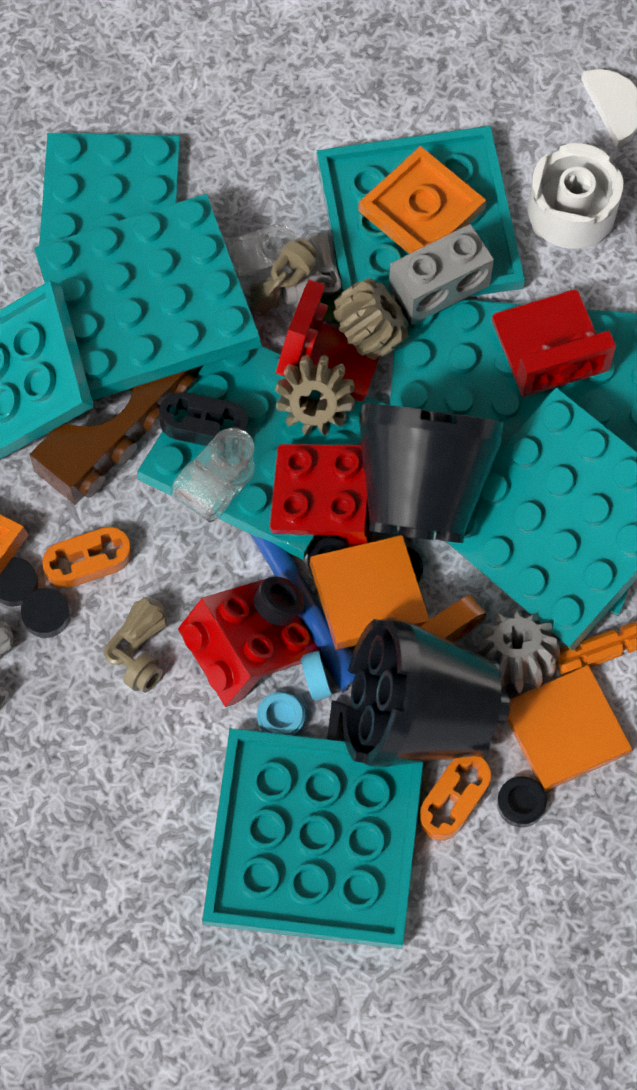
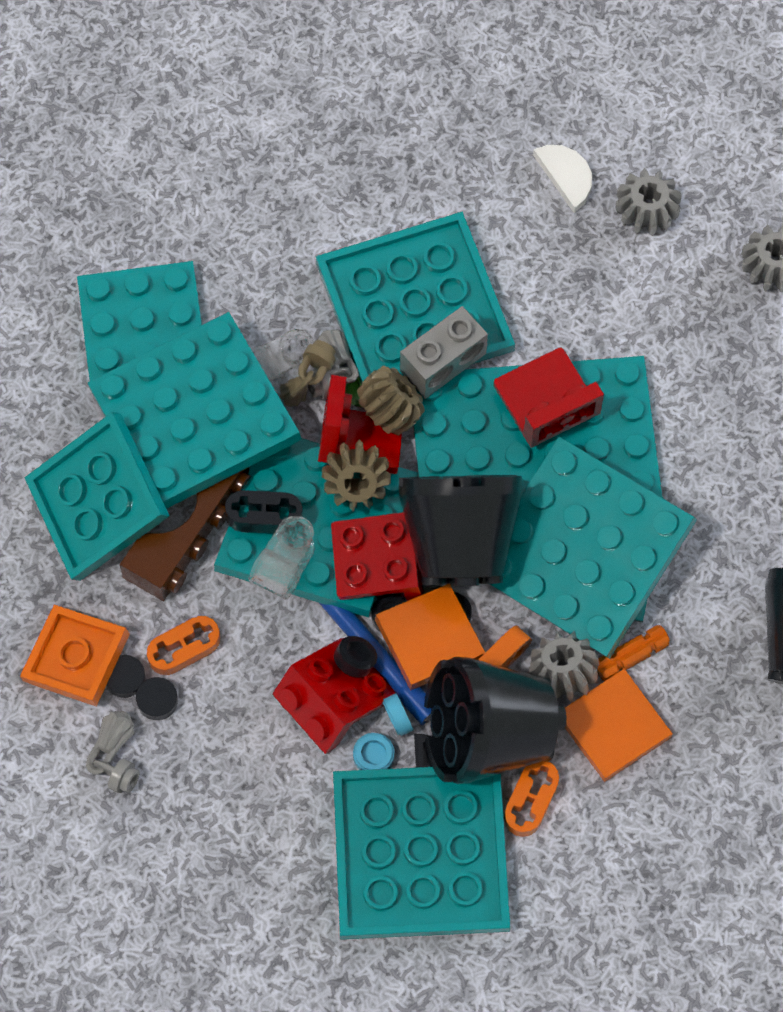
camera: 10 degrees left, 0 degrees up
(143, 621) = (242, 692): dark tan piece -> none
(421, 202) = (415, 291): orange tile -> none
(521, 801) = (587, 792): black tile -> none
(574, 196) = (545, 264): white brick -> none

